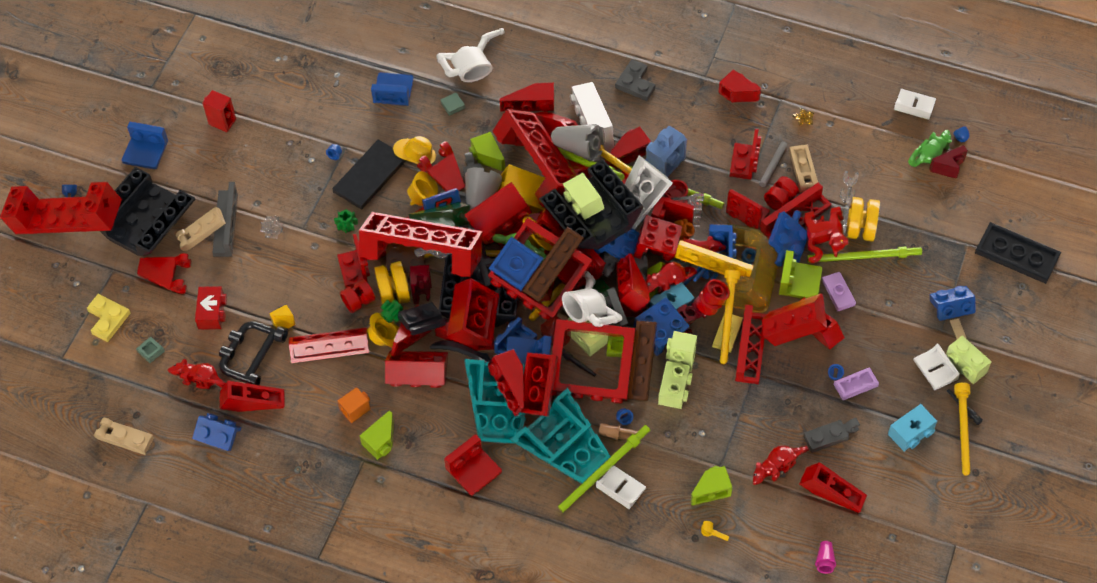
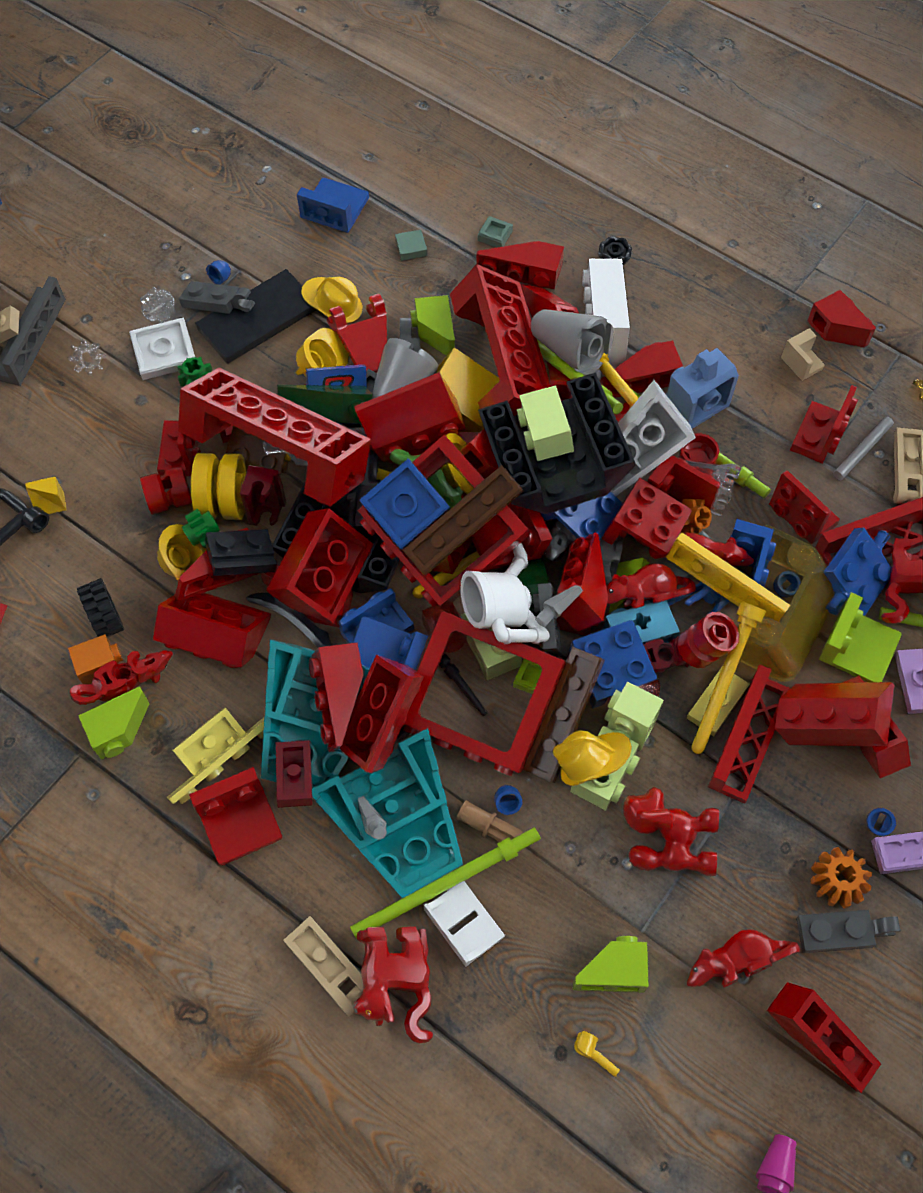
camera: 15 degrees right, 5 degrees up
(219, 111) = (79, 176): red brick -> none
(304, 183) = (158, 305): none -> clear gear
(316, 209) = (161, 347): none -> white tile
(328, 345) = (96, 554): fence -> none
(340, 169) = (215, 297): none -> dark grey plate
(347, 373) = (100, 608): none -> black tyre
(374, 410) = (116, 679): none -> red animal
(443, 433) = (209, 748): none -> light yellow bracket
(469, 61) = (455, 190): white piece -> none
(499, 431) = (293, 774): none -> dark red slope
(504, 82) = (495, 232): none -> sand green tile
(553, 445) = (372, 821): none -> light grey bar
(553, 528) = (325, 963): none -> tan plate
(585, 75) = (615, 249): none -> black plate
(592, 519) = (395, 971): none -> red animal
(622, 297) = (557, 605): none -> light grey bar
(632, 81) = (682, 275): dark grey plate -> none
(663, 378) = (591, 756): none -> yellow piece
(720, 117) = (800, 357): none -> tan panel
(725, 404) = (679, 829): none -> red animal
(781, 193) = (865, 496): red wheel -> none
(821, 407) = (847, 890): none -> orange gear

